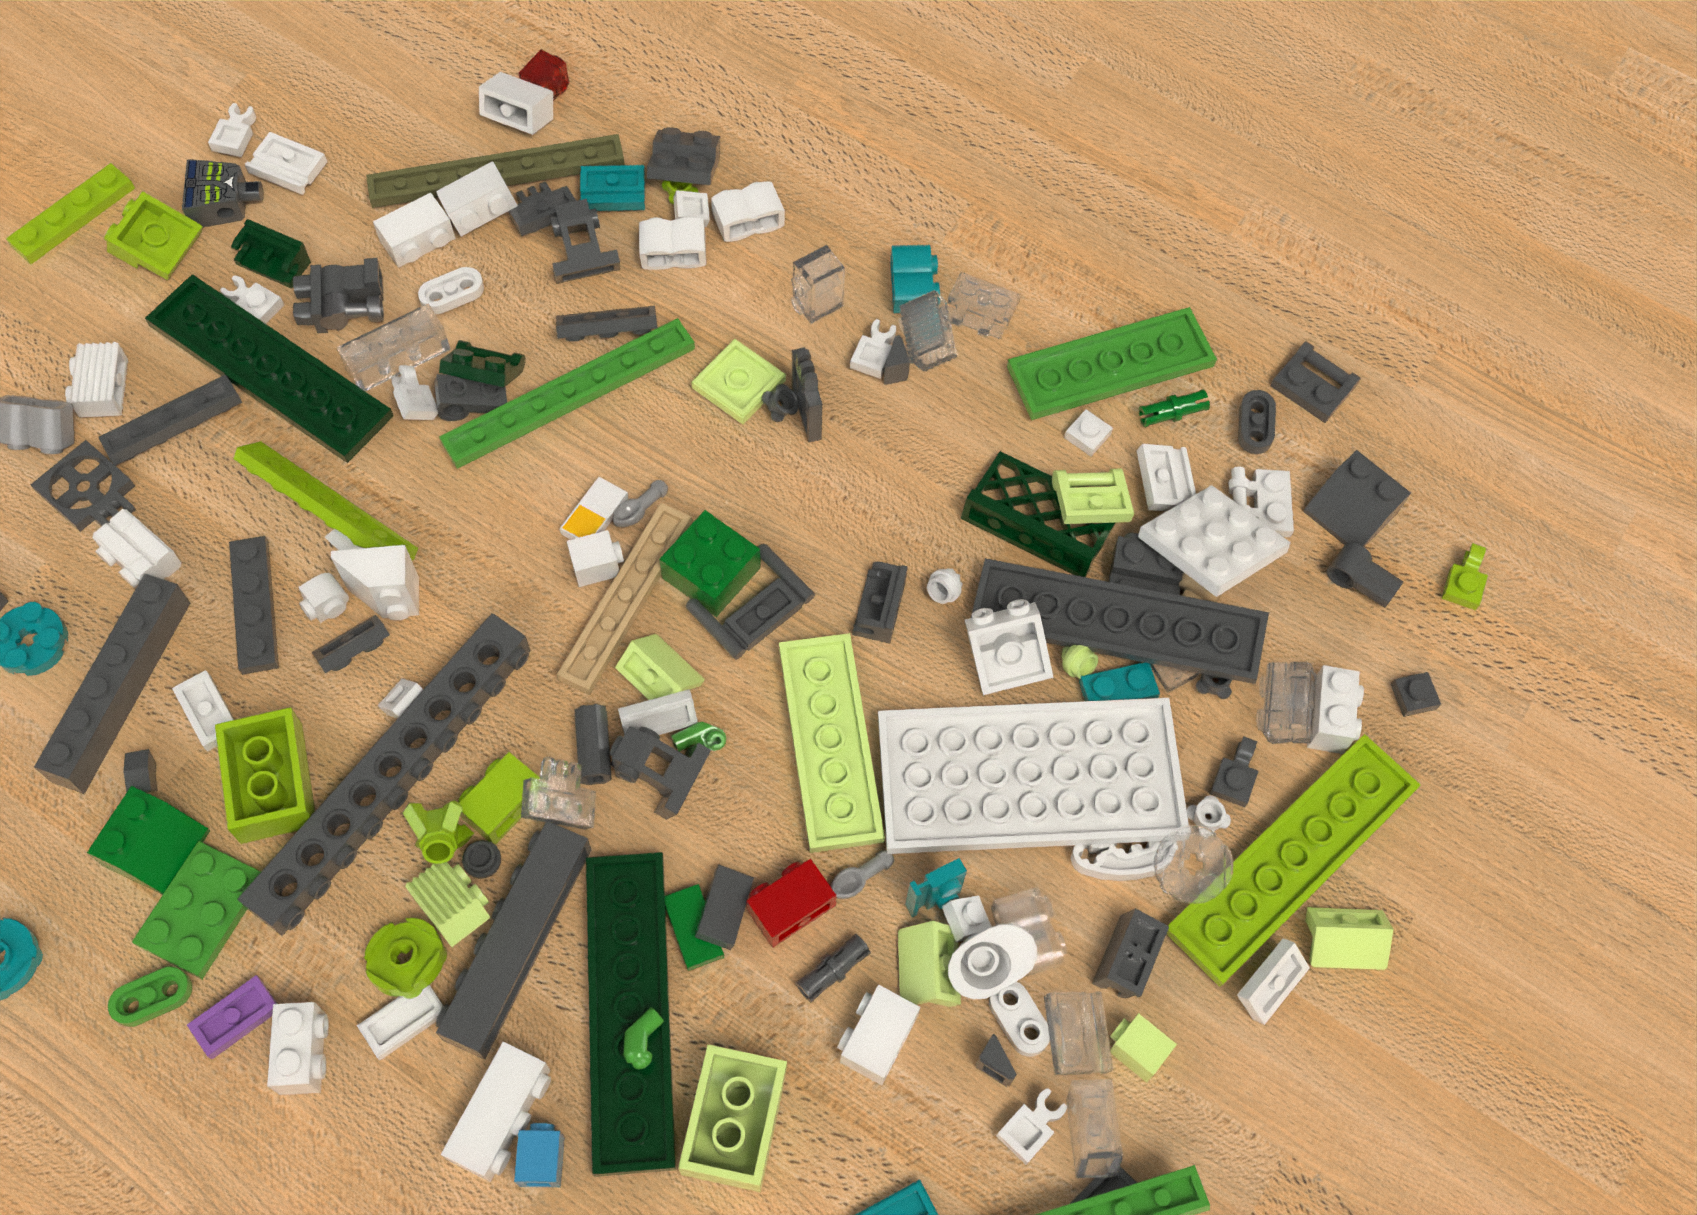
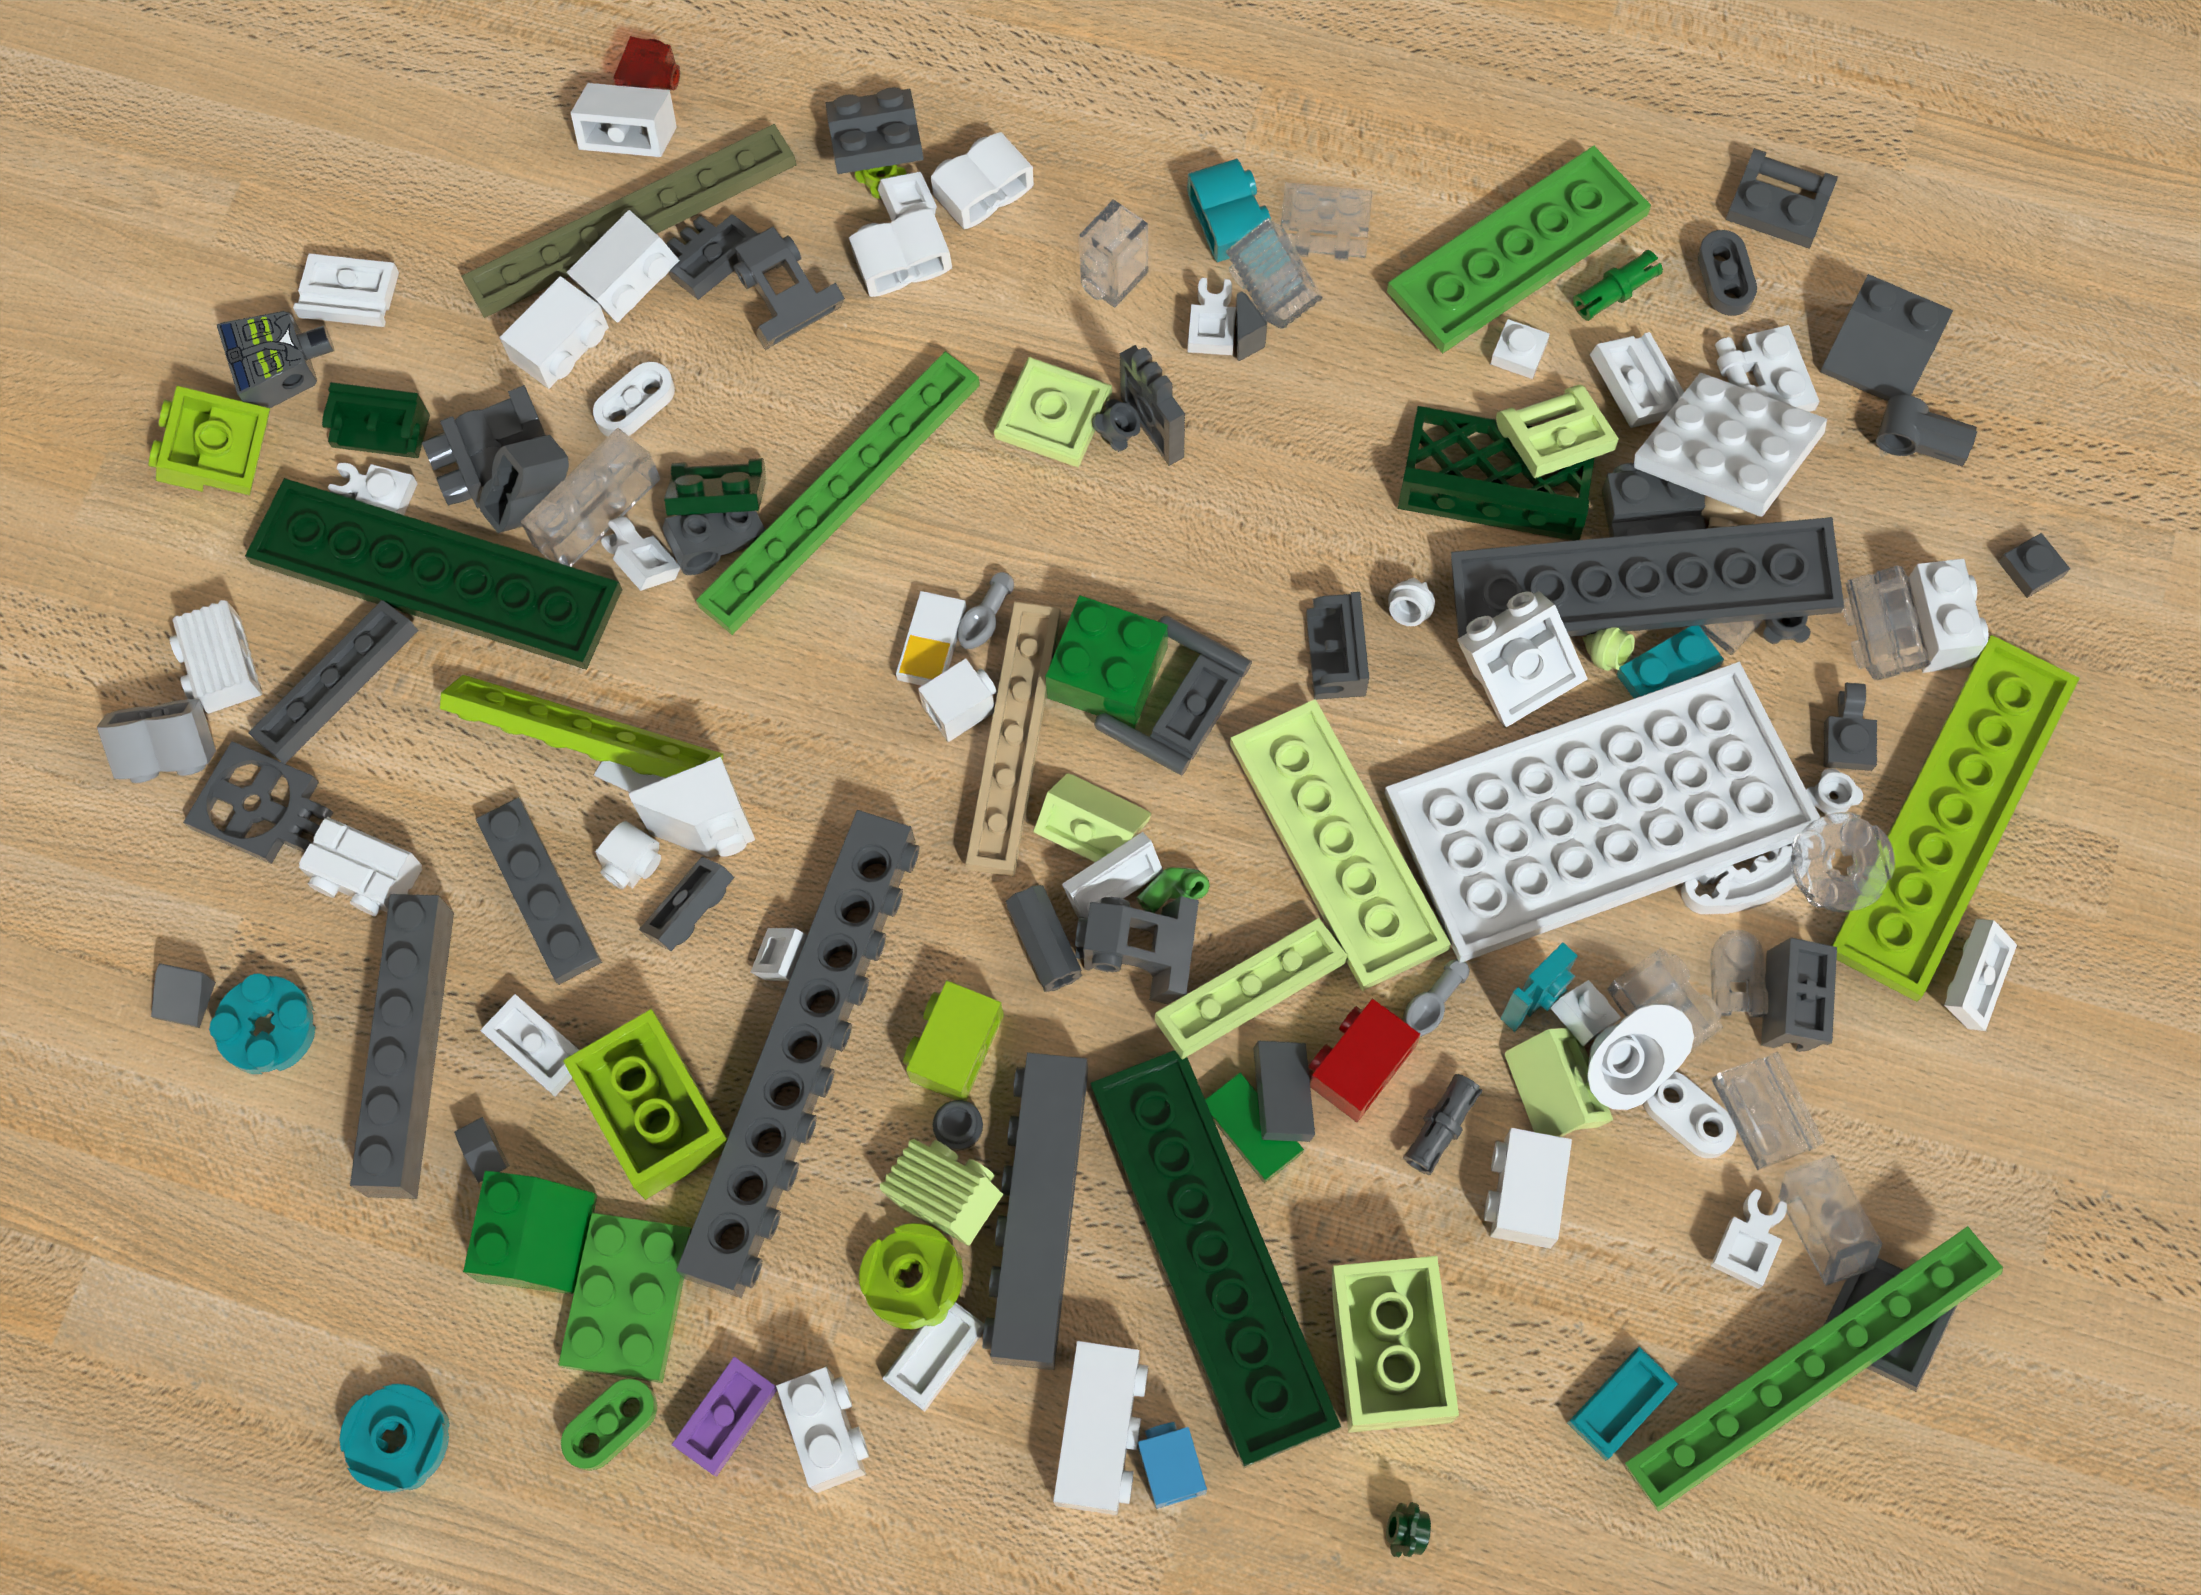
camera: 10 degrees left, 5 degrees up
(70, 213) = (82, 442): lime plate -> none
(233, 134) = (260, 271): white plate -> none
(347, 318) = (521, 480): none -> dark grey brick
(437, 830) = (894, 1107): lime rock -> none
(559, 796) = (1028, 1016): clear hinge -> none
(606, 323) = (854, 384): dark grey plate -> none
(613, 187) = (794, 198): teal plate -> none
(637, 1039) = (1240, 1287): bright green arm -> none
(726, 825) = (1250, 988): none -> yellowish green plate
(995, 1062) = (1681, 1177): dark grey slope -> none
(1095, 914) = (1738, 958): none -> clear plate
(1141, 1046) = (1850, 1103): yellowish green brick -> none
(1349, 938) = (2053, 893): yellowish green panel -> none
(1464, 582) = (2049, 405): lime plate -> none

